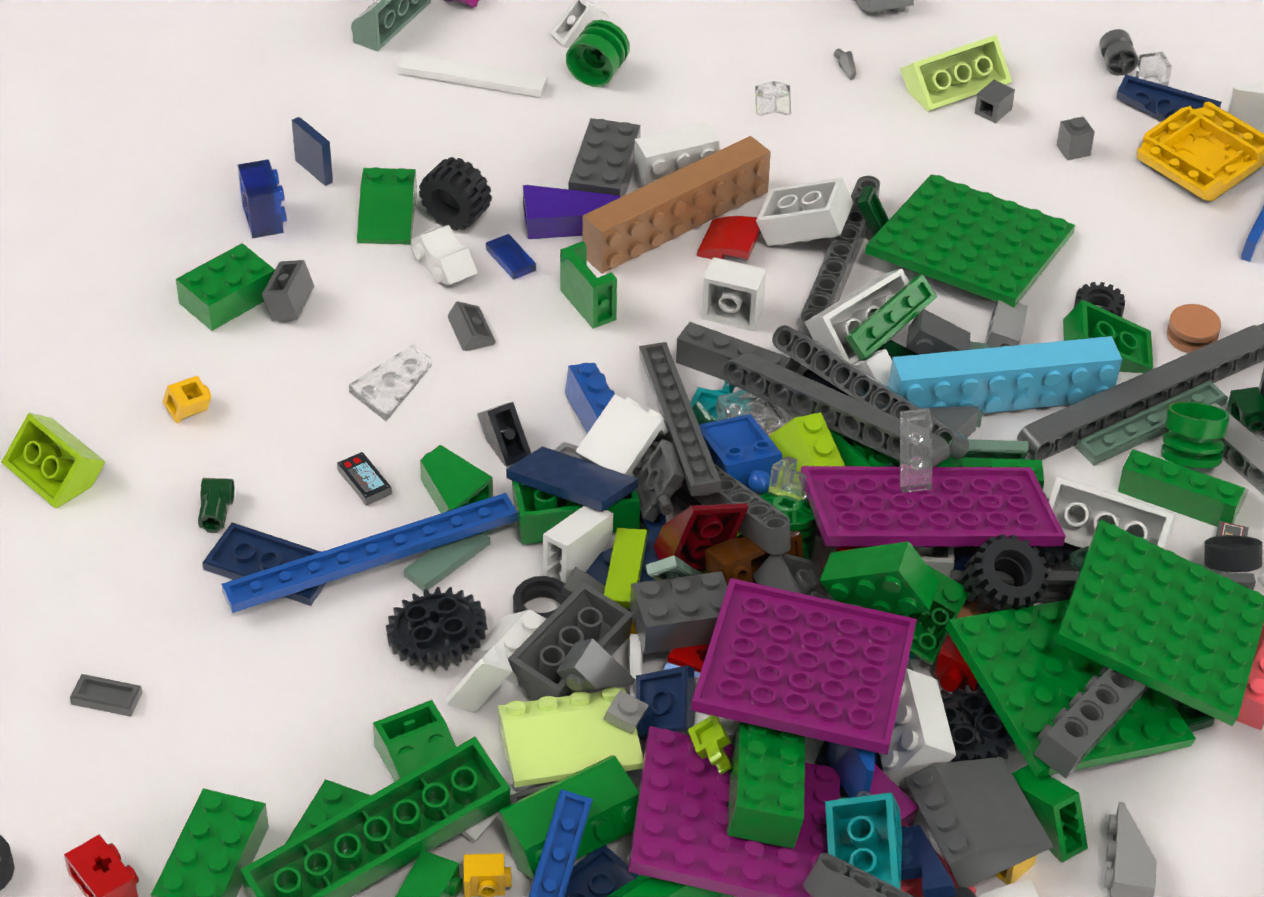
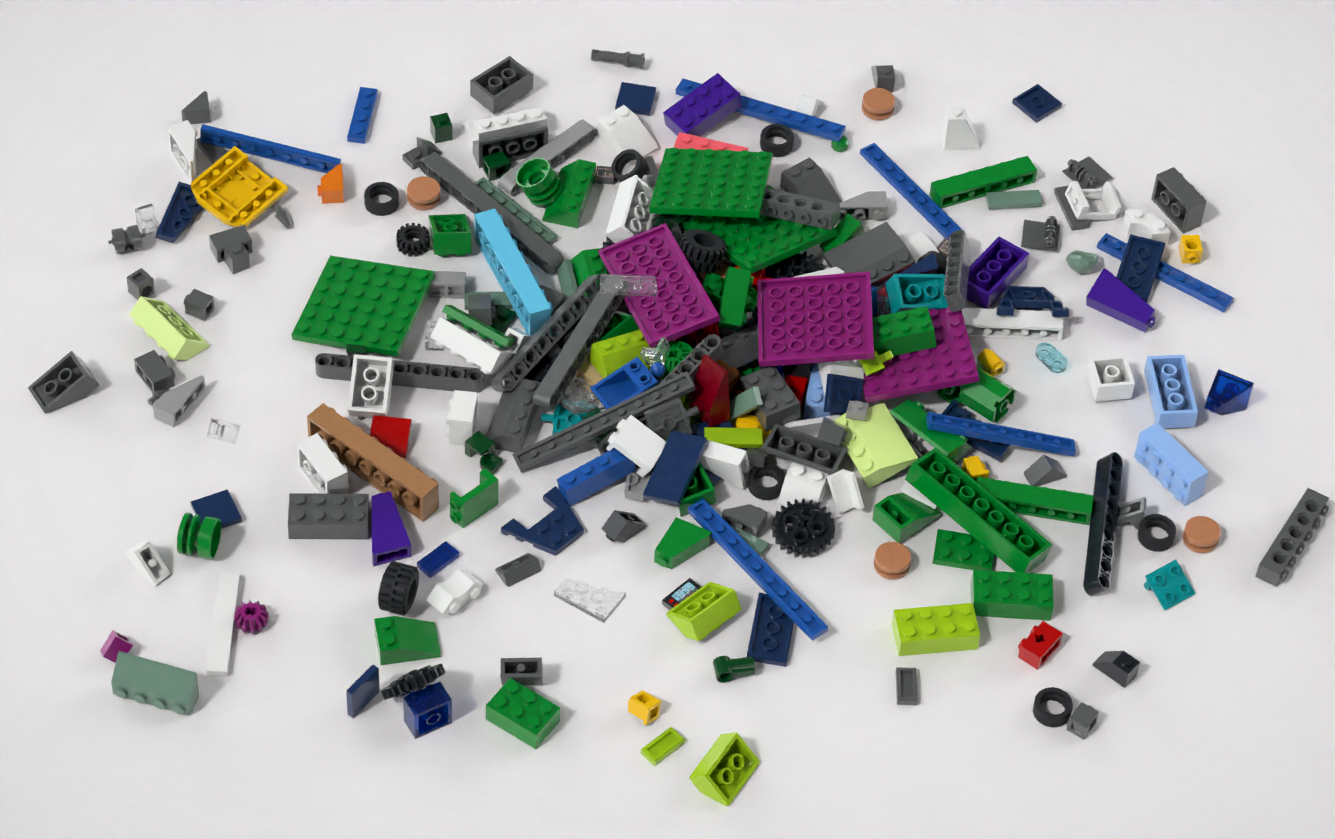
camera: 105 degrees left, 5 degrees up
(124, 415) = (662, 746): none -> lime tile
(183, 743) = (935, 629): none -> lime brick
(311, 193) = (413, 681): none -> black gear
(320, 485) = (704, 610): none -> lime slope
(339, 725) = (892, 560): none -> nougat head
(469, 90) = (251, 617): none -> magenta gear
(470, 565) = (747, 518): none -> dark grey slope
(523, 368) = (552, 532): none -> dark blue wing
(647, 86) = (219, 506): none -> dark blue tile
(662, 327) = (490, 462): none -> dark green tile
(687, 309) = (479, 444): none -> dark green panel
(829, 68) = (177, 401): none -> light grey slope
(882, 55) = (154, 371): none -> dark grey brick
(1030, 52) = (140, 284): none -> dark grey brick
(1109, 140) = (228, 237): none -> dark grey brick
(1157, 192) = (281, 215): none -> dark grey bar
(1182, 793) = (808, 180): none -> dark grey slope
(1186, 273) = (381, 188): none -> black tyre
(1213, 241) = (332, 186): none -> orange slope

